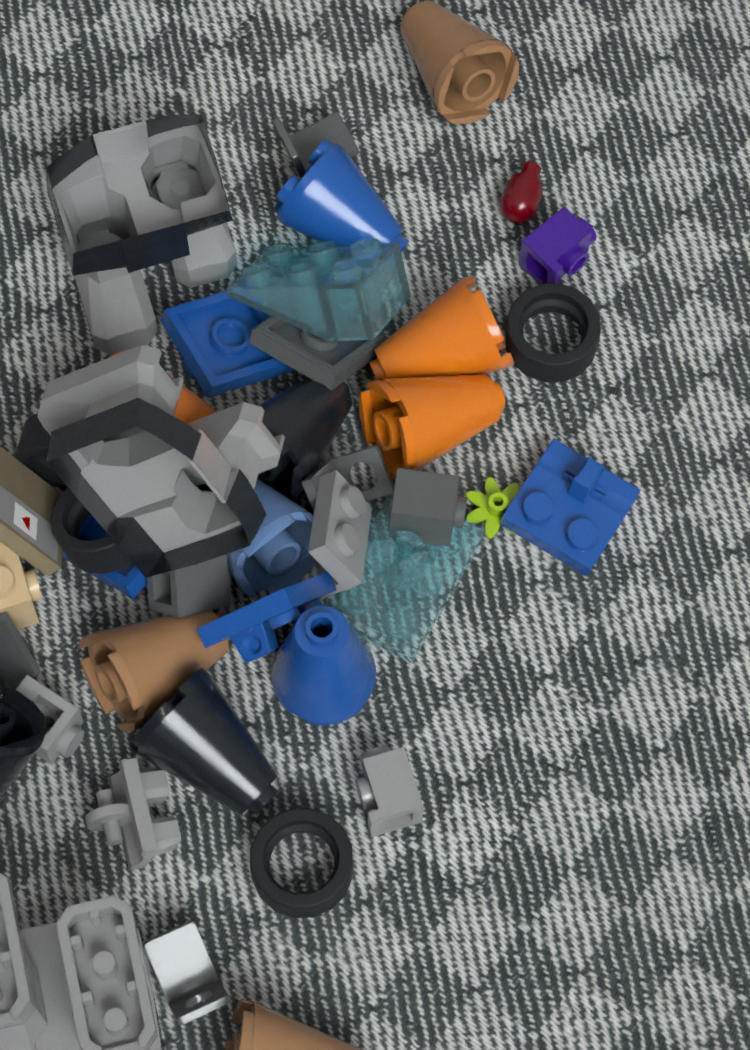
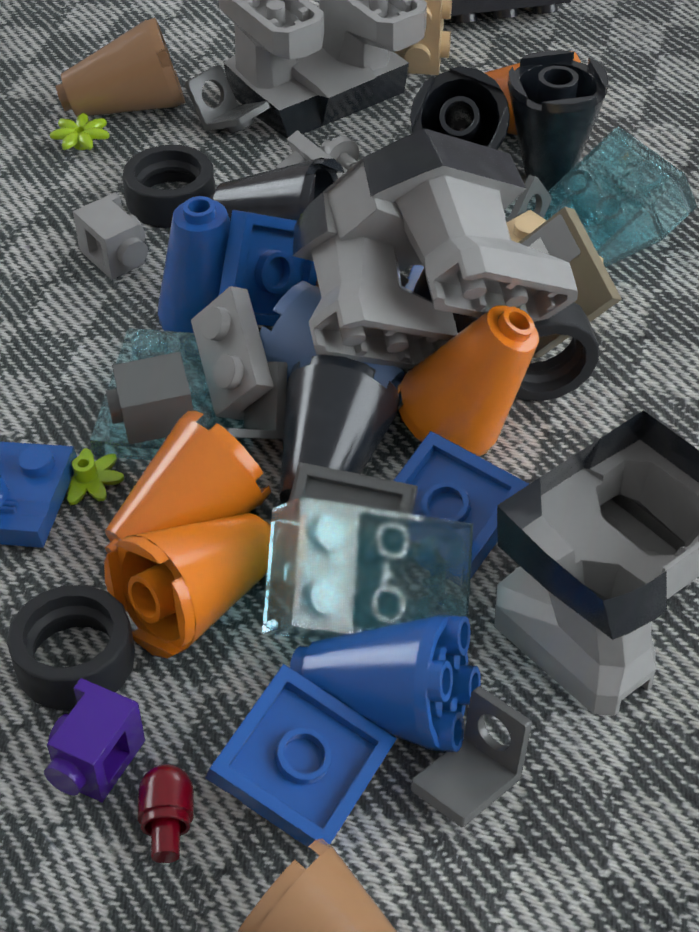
camera: 160 degrees right, 20 degrees down
(368, 1001) = (80, 133): none -> lime plant
(427, 183) = (301, 758): none -> blue hinge

